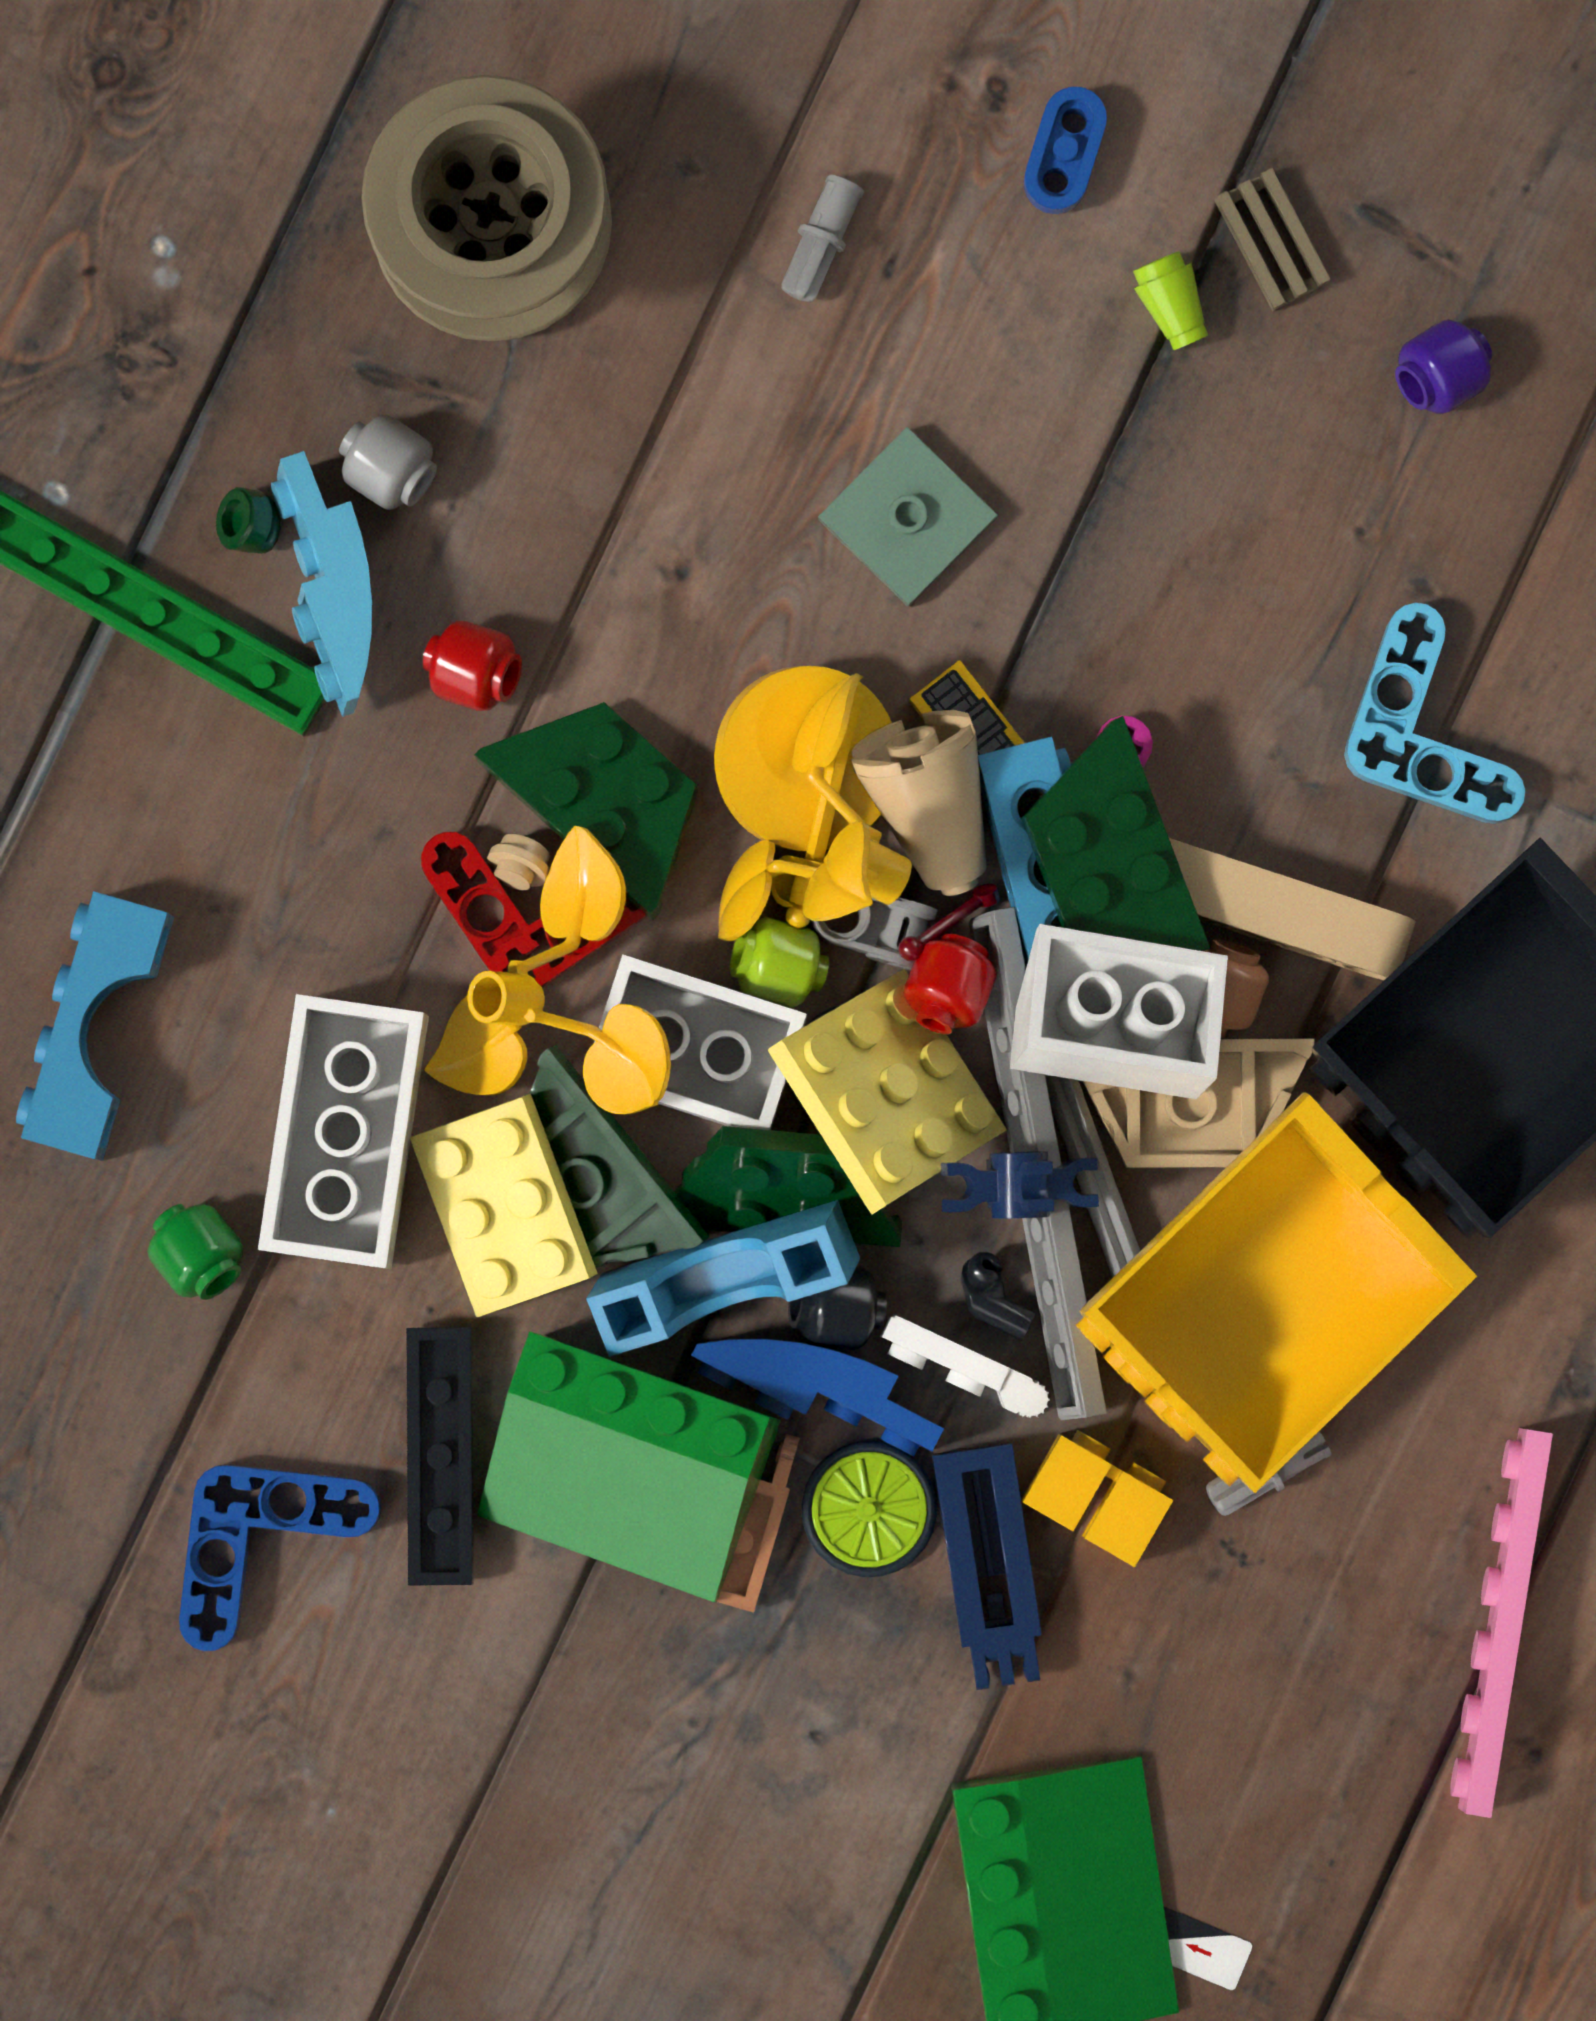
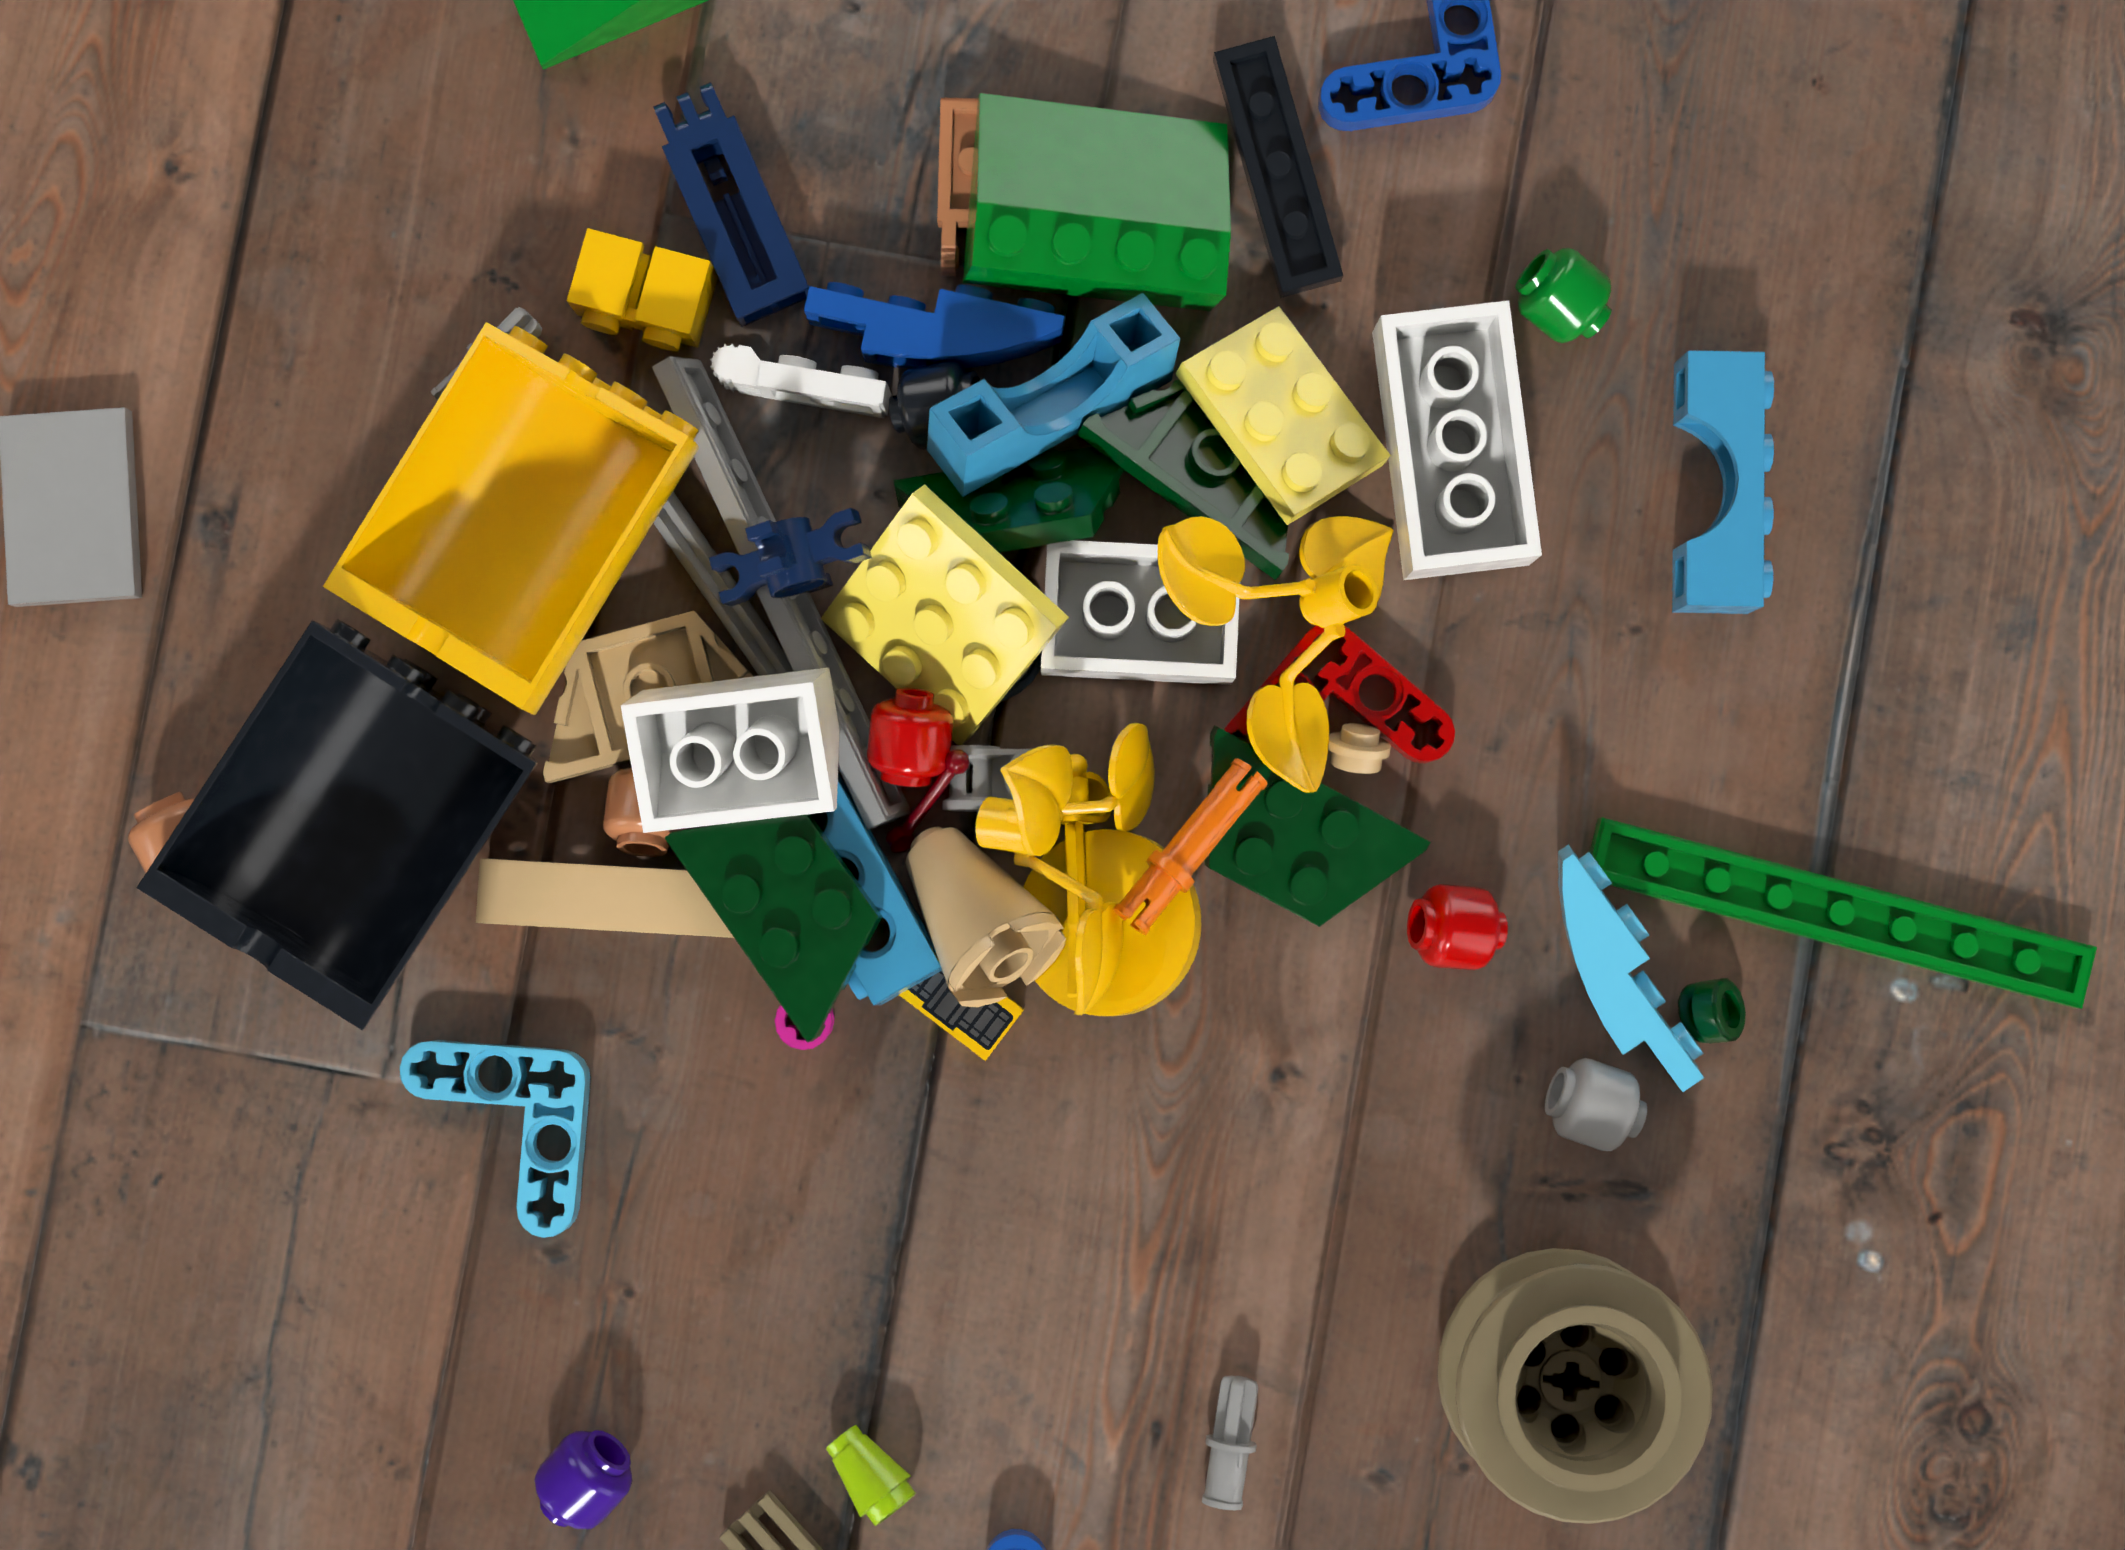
camera: 165 degrees right, 0 degrees up
(710, 804) = (1190, 846): none -> orange pin
(779, 962) = (1082, 715): lime head -> none
(869, 1509) = (858, 225): lime wheel -> none
(907, 517) = (1073, 1188): sand green plate -> none
(987, 1298) = (797, 454): black arm -> none
(1497, 1647) = (224, 252): bright pink plate -> none

